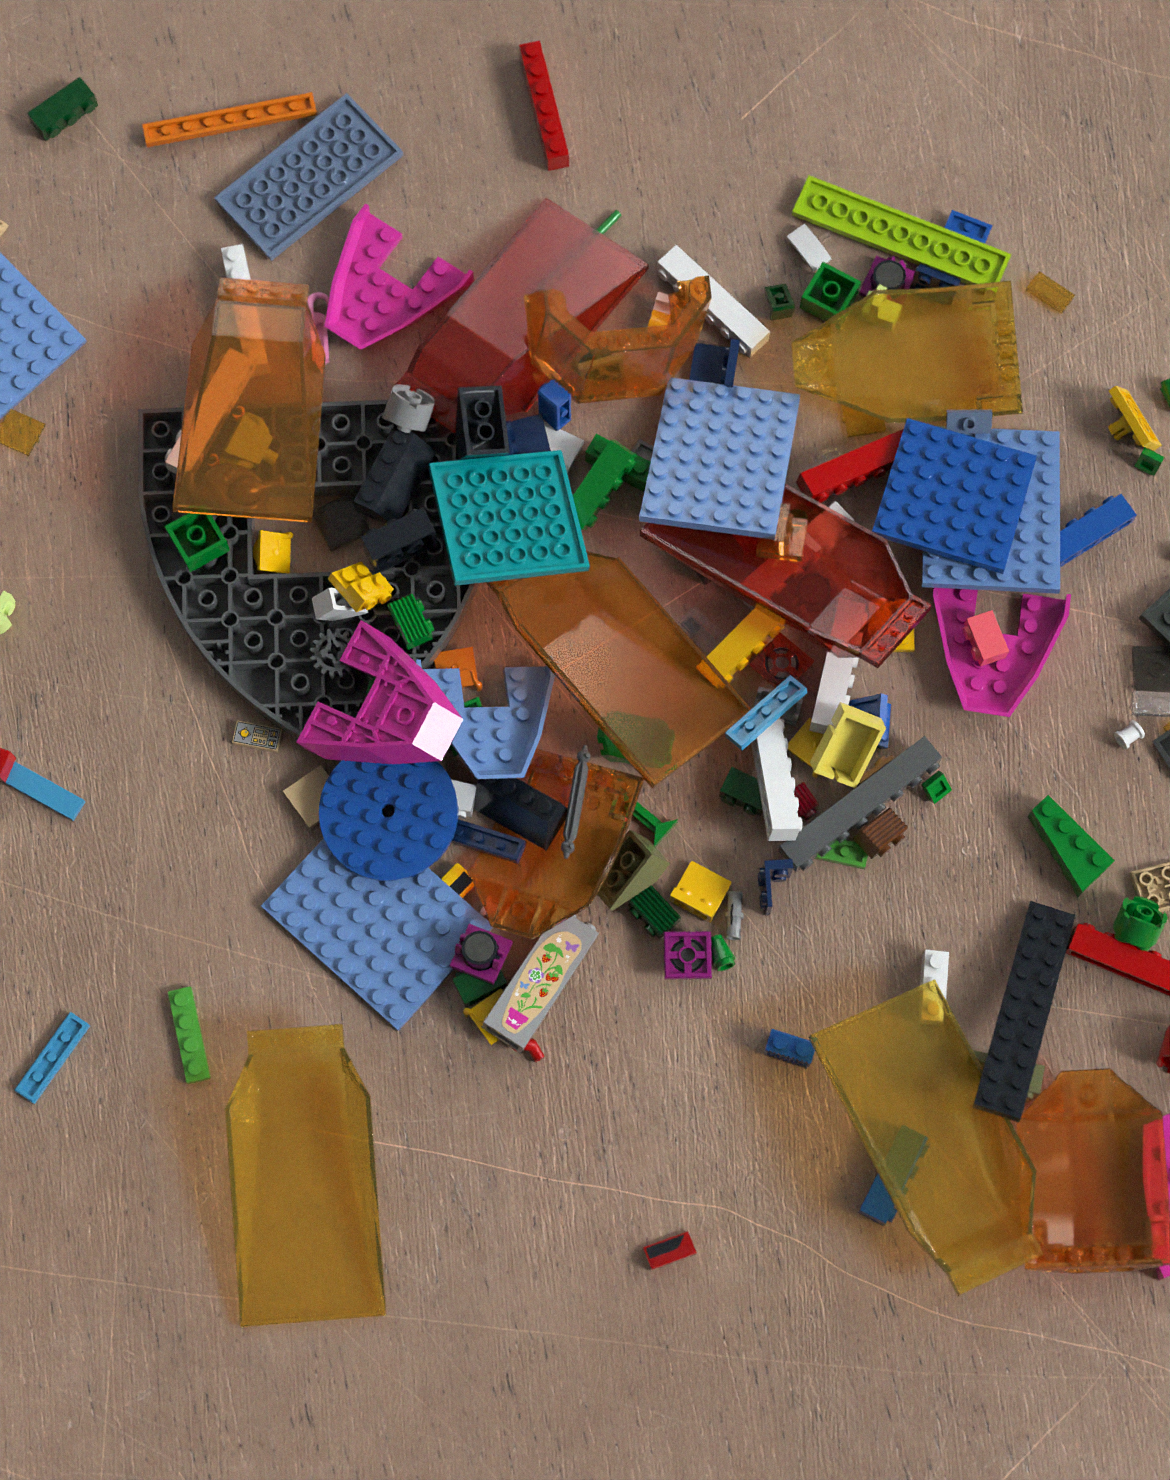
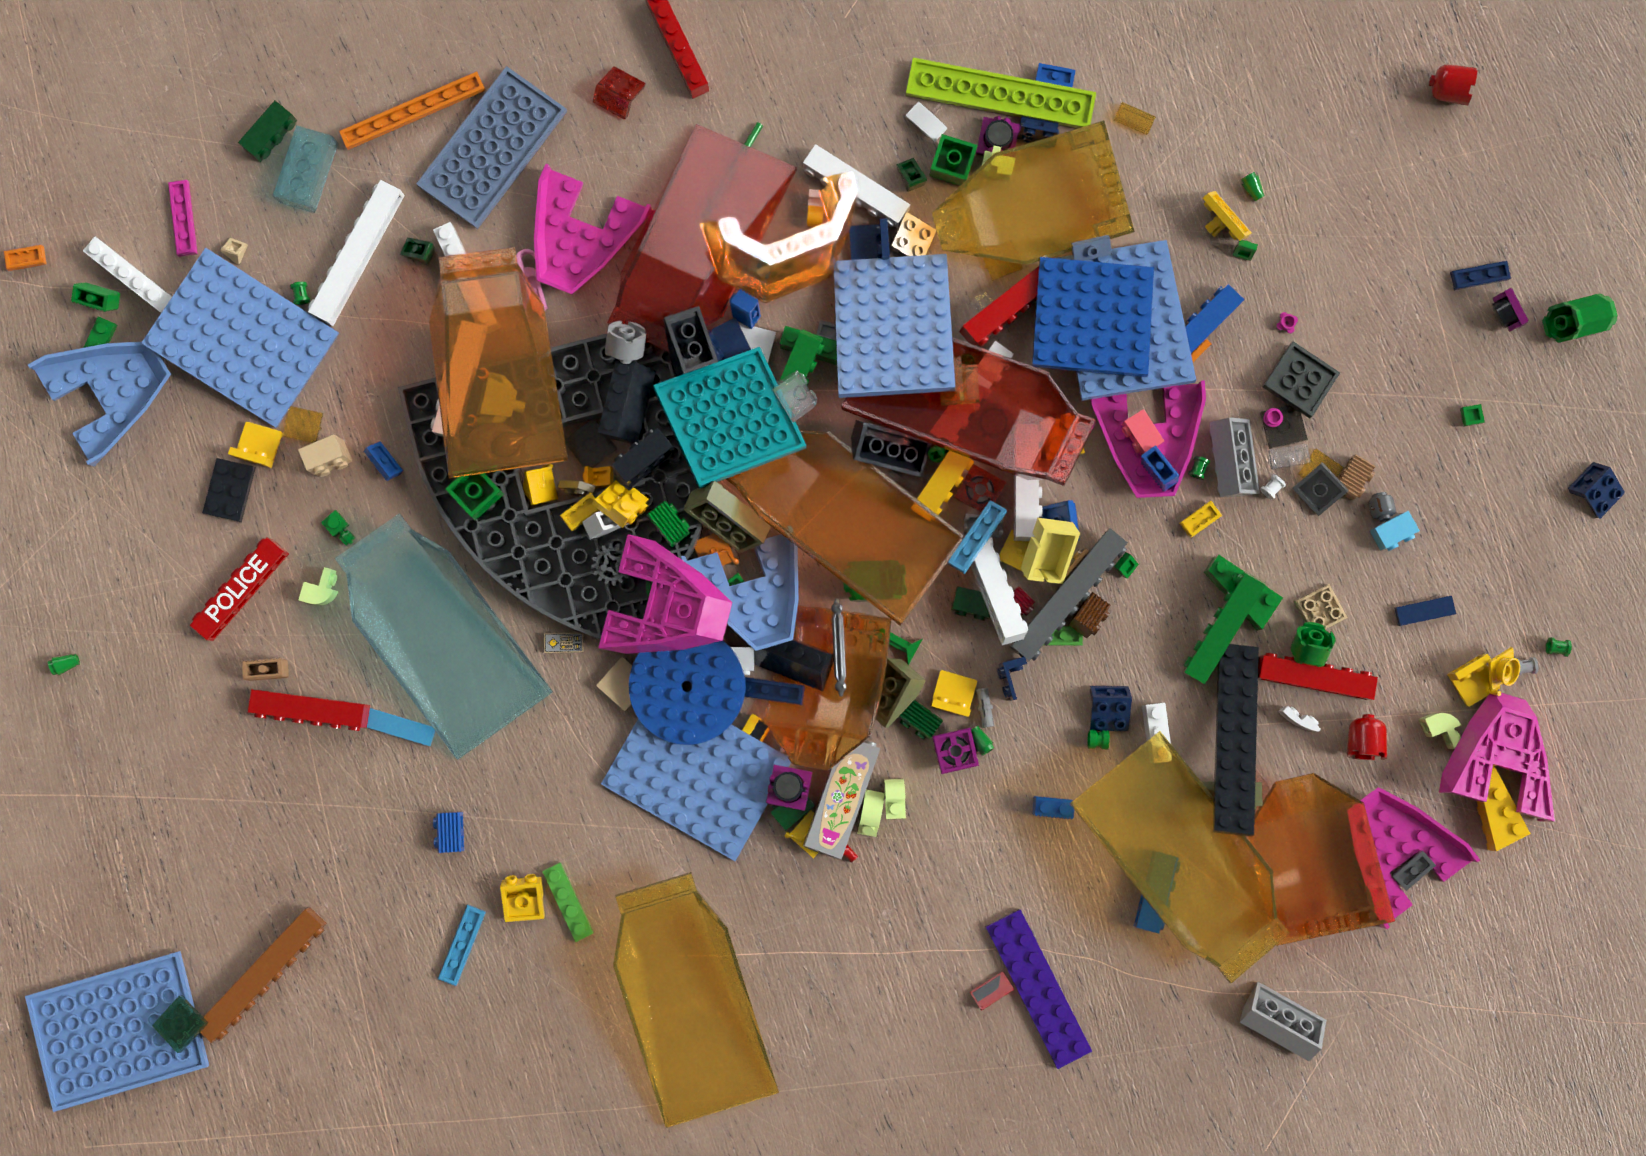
camera: 15 degrees left, 10 degrees up
(29, 549) = (336, 524): none -> green plate
(37, 468) = (325, 456): none -> tan brick
(54, 288) = (303, 299): none -> green bush
(70, 922) = (449, 832): none -> blue brick
(94, 157) = (305, 169): none -> clear light blue brick
(100, 489) = (383, 461): none -> blue plate
(116, 695) = (438, 635): none -> clear light blue windscreen
(128, 258) = (356, 252): none -> white brick
(137, 1017) = (522, 898): none -> yellow plate
(199, 268) = (418, 250): none -> dark green slope
(307, 588) = (579, 512): none -> yellow plate
(314, 562) = (576, 487): none -> dark tan plate
(340, 558) = (600, 477): none -> light orange bracket
(463, 146) = (617, 92): none -> clear red bracket
(480, 628) = (727, 517): none -> olive brick
(570, 1008) = (871, 813): none -> yellowish green brick
(589, 509) = (795, 395): none -> clear slope
(603, 996) = (894, 798): none -> yellowish green brick
(686, 592) = (889, 448): none -> black slope
(727, 1262) = (1038, 989): none -> dark purple plate
(739, 610) = (937, 454): none -> green bush
(765, 368) = (913, 236): none -> tan hinge
(862, 981) = (1098, 739): none -> green wheel
(882, 949) = (1110, 708): none -> dark blue bracket
(997, 681) = (1159, 468): none -> blue brick
(1017, 1366) = (1284, 1021): none -> light grey slope
(1035, 753) = (1200, 519): none -> yellow plate
(1037, 878) = (1224, 627): none -> green brick
(1045, 694) = (1199, 467): none -> green bush
(1072, 563) = (1200, 349): none -> orange tile
(1090, 691) = (1234, 457): none -> light grey slope
(1115, 1015) = (1305, 722): none -> white slope
(1144, 655) = (1273, 417): none -> dark pink plate

